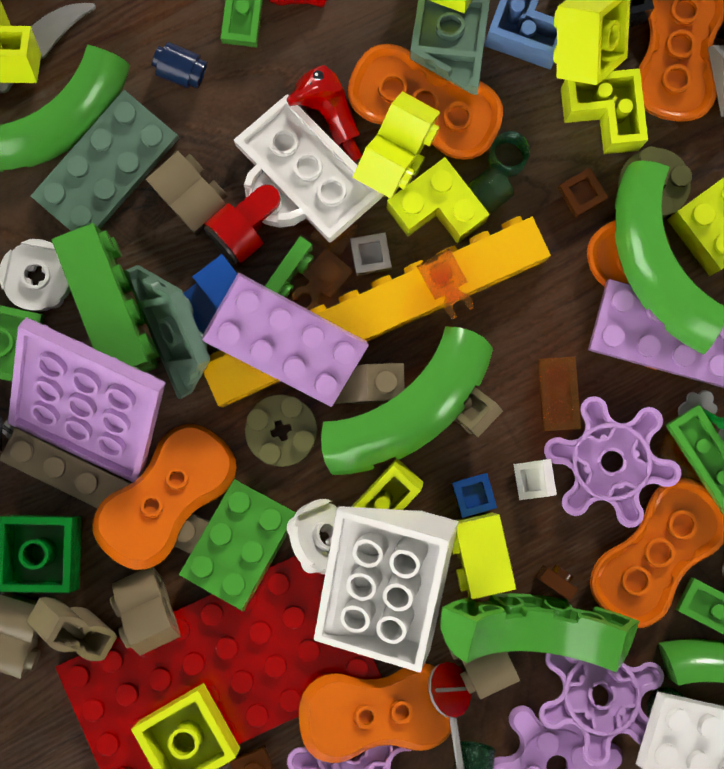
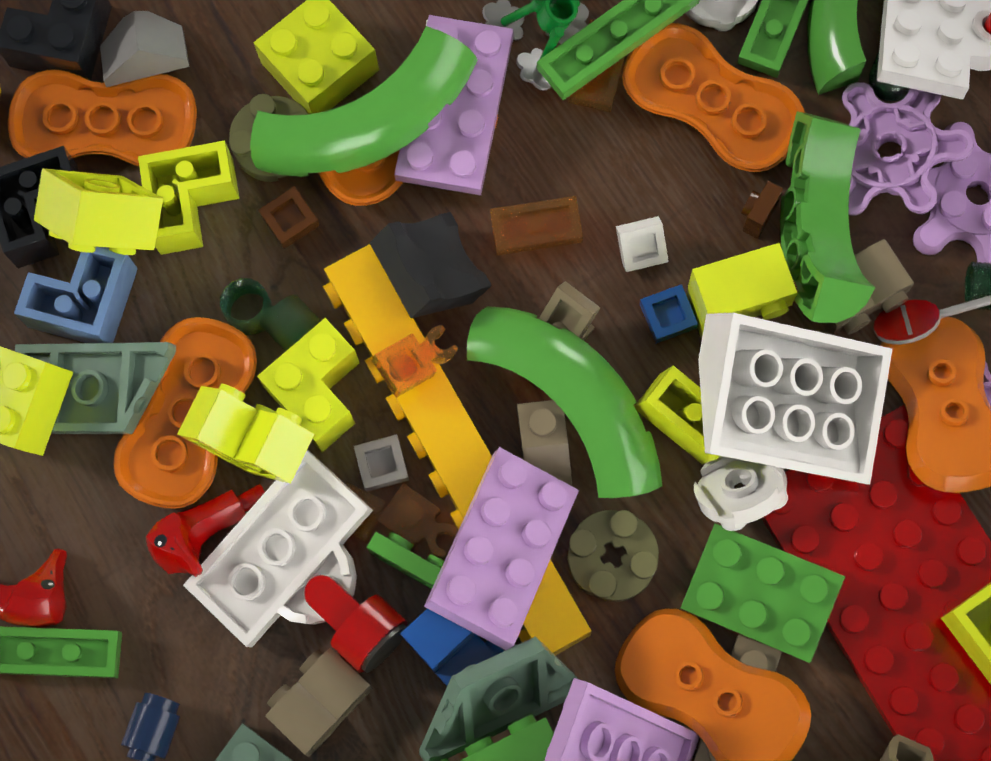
camera: 90 degrees left, 10 degrees down
(144, 611) = (862, 701): dark tan brick -> none
(528, 301) = (429, 265): none -> black brick
(618, 487) = (619, 128): lavender plate -> none

